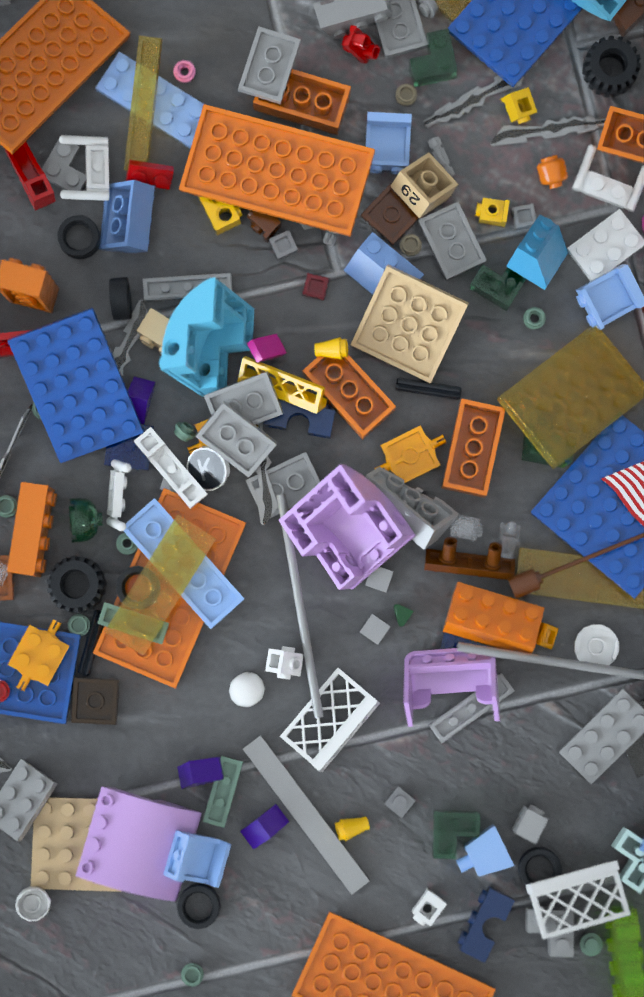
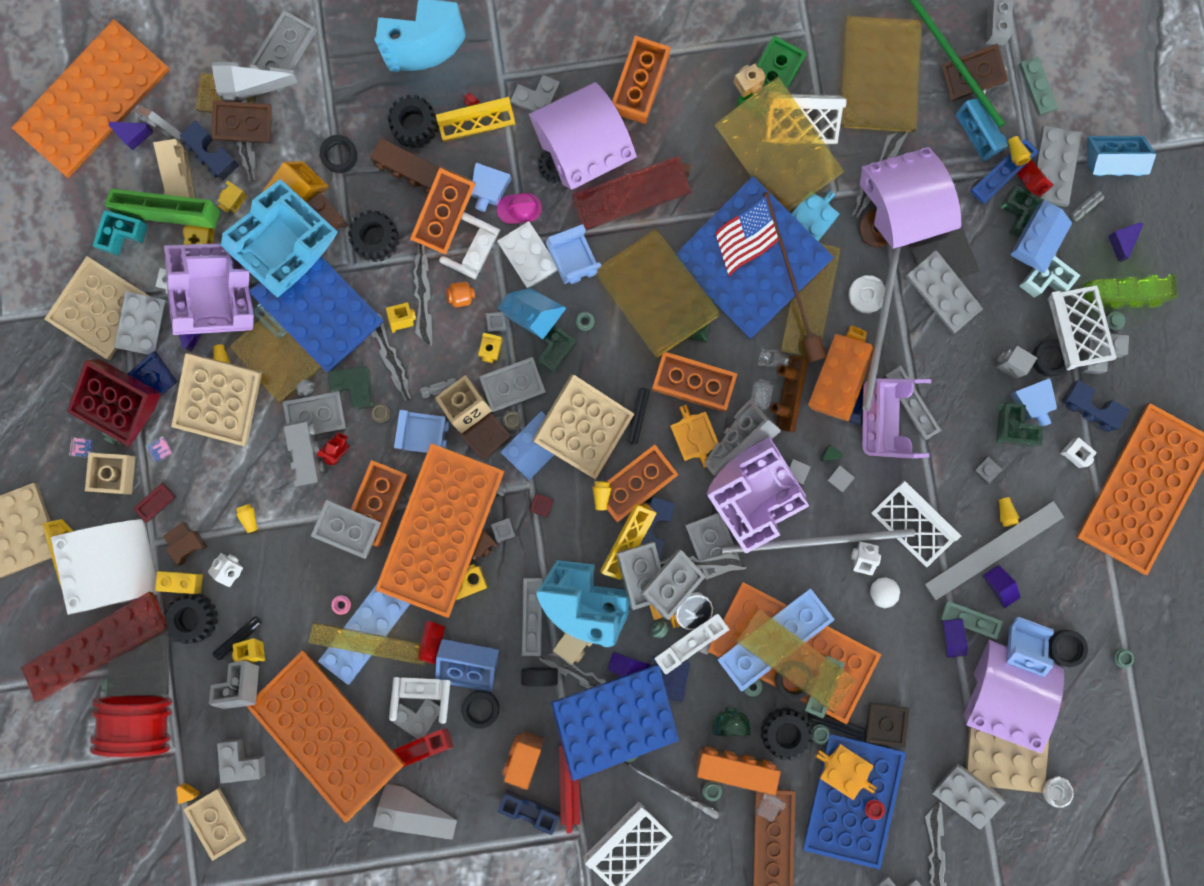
camera: 85 degrees left, 0 degrees up
(116, 502) = (718, 693): white plate -> none
(266, 348) = (593, 552): dark pink tile -> none

